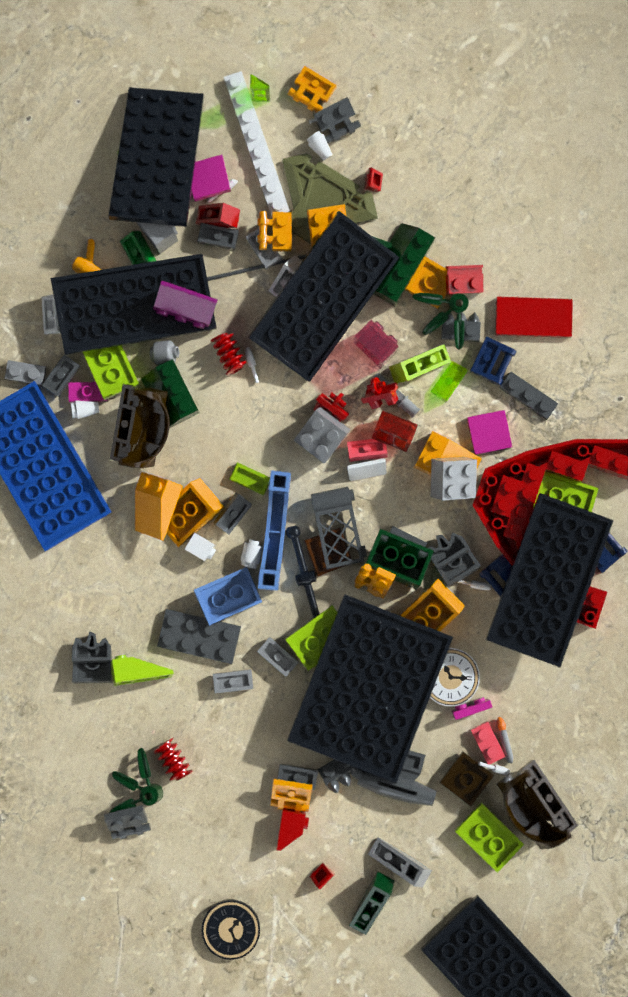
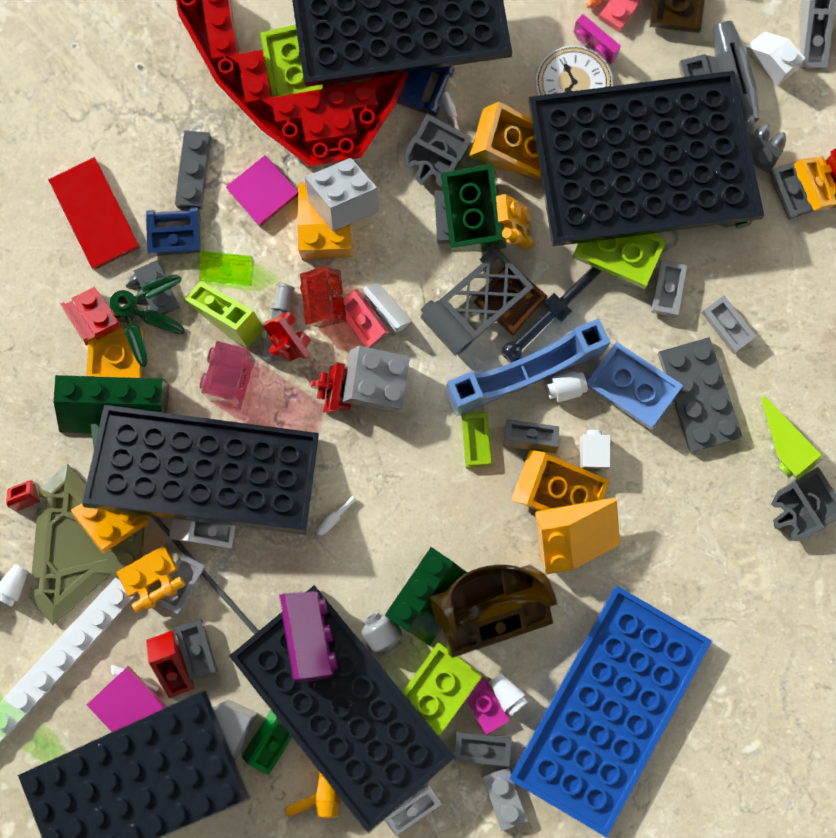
camera: 115 degrees left, 5 degrees down
(228, 353) = (337, 551): red piece -> none
(395, 821) = (775, 56): none -> white slope

